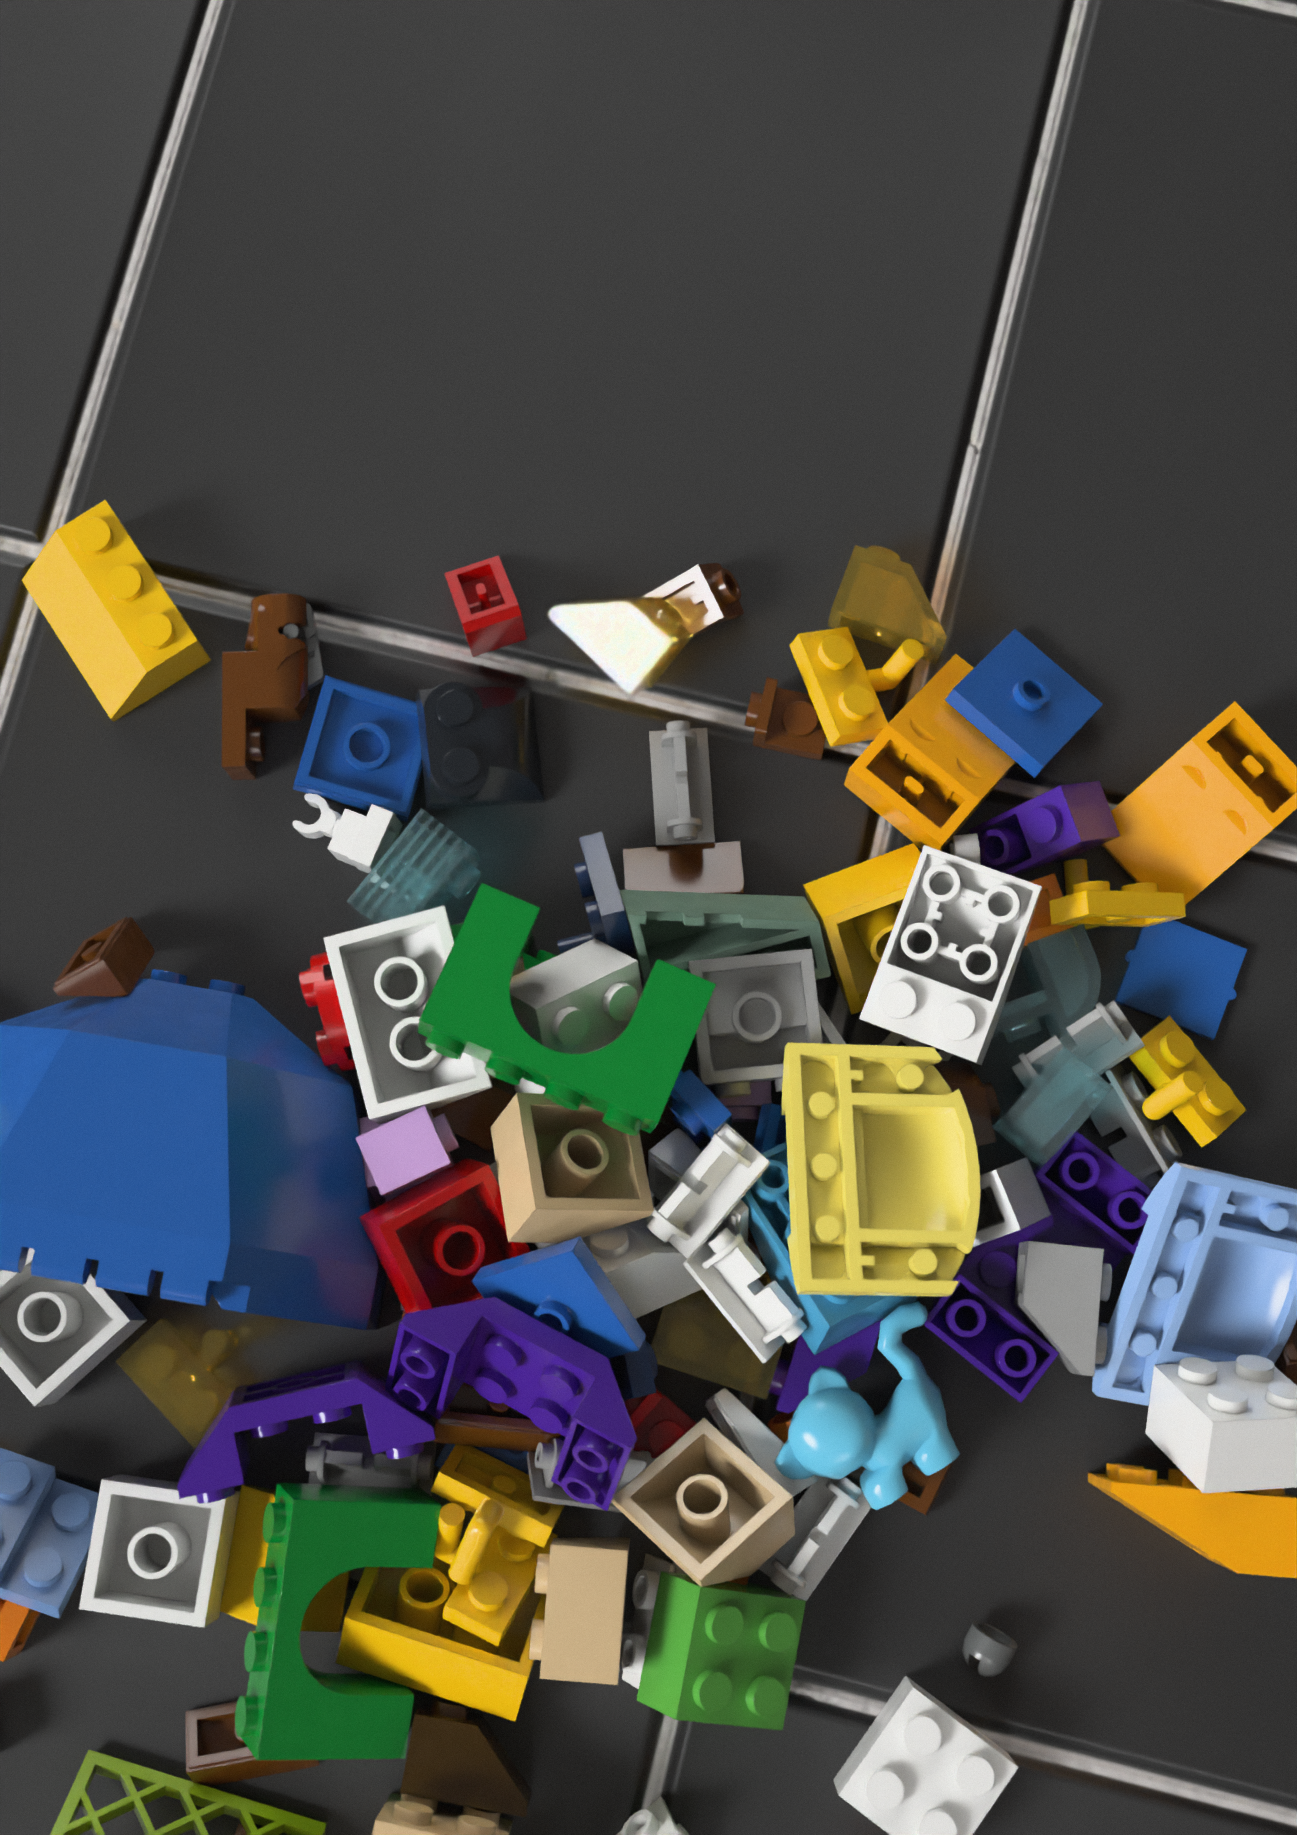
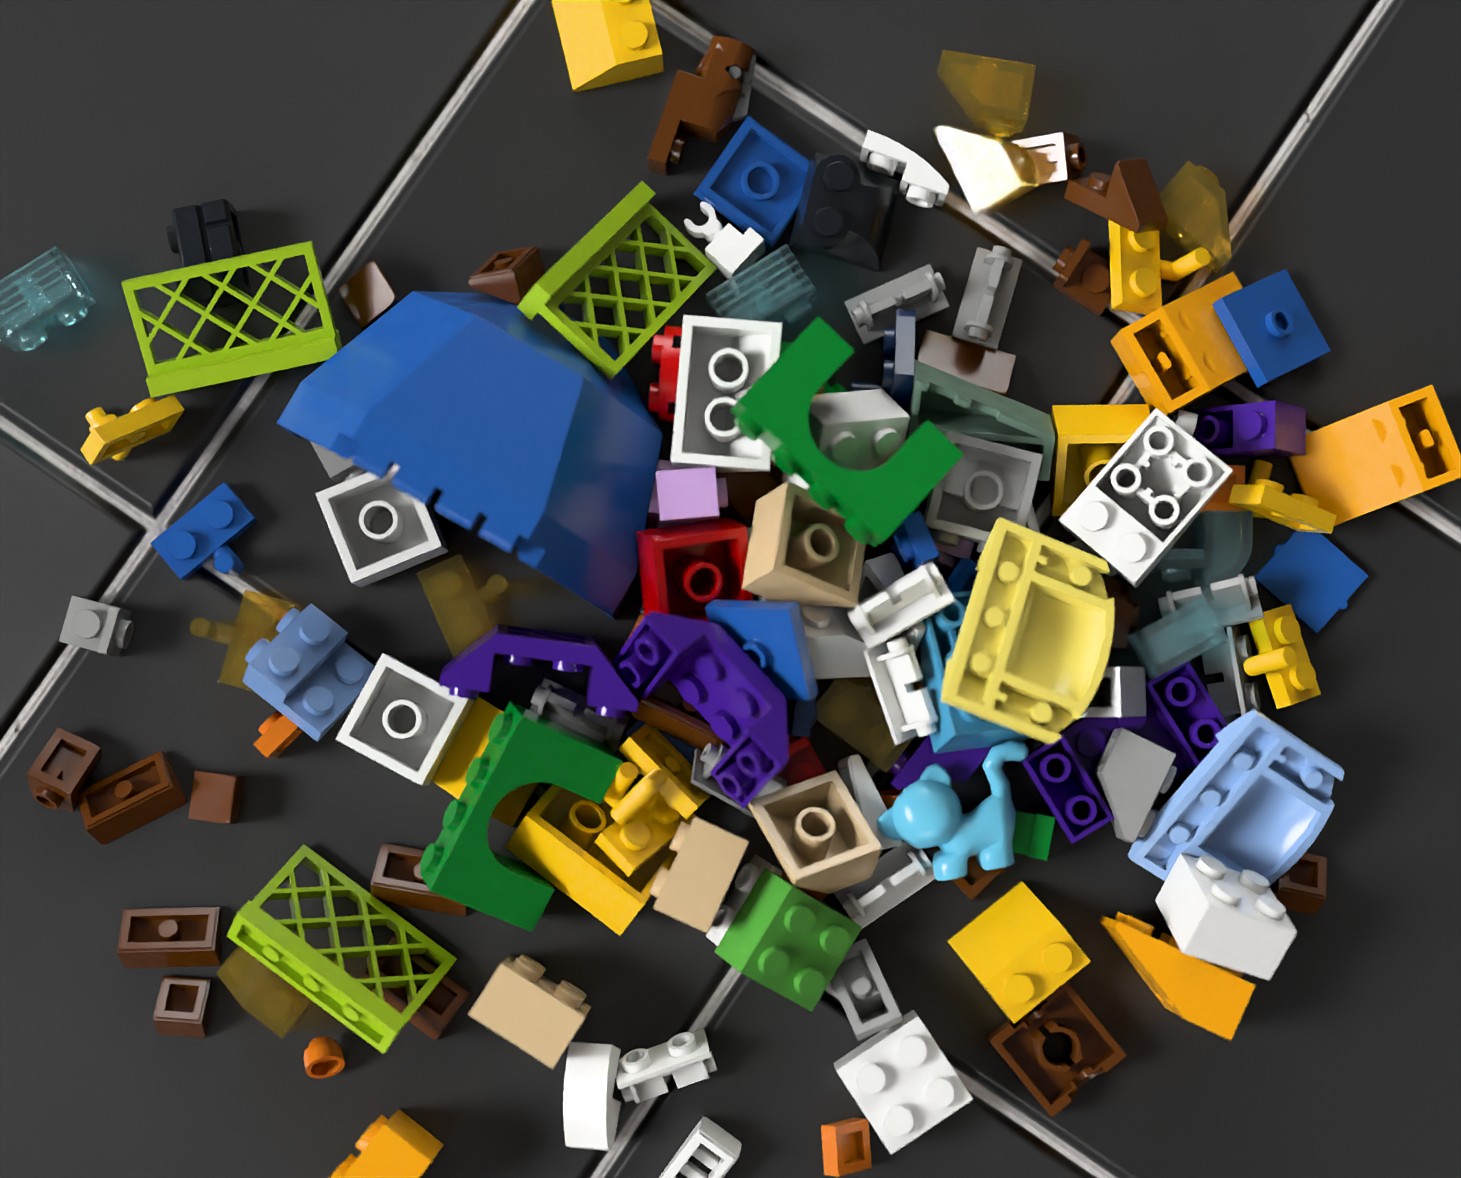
camera: 15 degrees right, 5 degrees up
(187, 913) = (586, 261): none -> lime fence
(461, 1761) = (570, 949): dark brown slope -> none
(486, 606) = (889, 103): red slope -> none
(551, 678) = (919, 181): none -> white slope
(593, 809) = (877, 308): none -> light grey hinge
(596, 546) = (989, 90): none -> clear yellow slope
(796, 613) = (1123, 198): none -> reddish brown slope
(839, 1681) = (865, 992): none -> light grey slope
(970, 1408) = (1033, 835): none -> green piece
(988, 1649) = (980, 1012): dark grey hinge -> none
(1005, 1559) = (1018, 951): none -> yellow slope
(1050, 1668) = (1056, 1082): none -> reddish brown brick

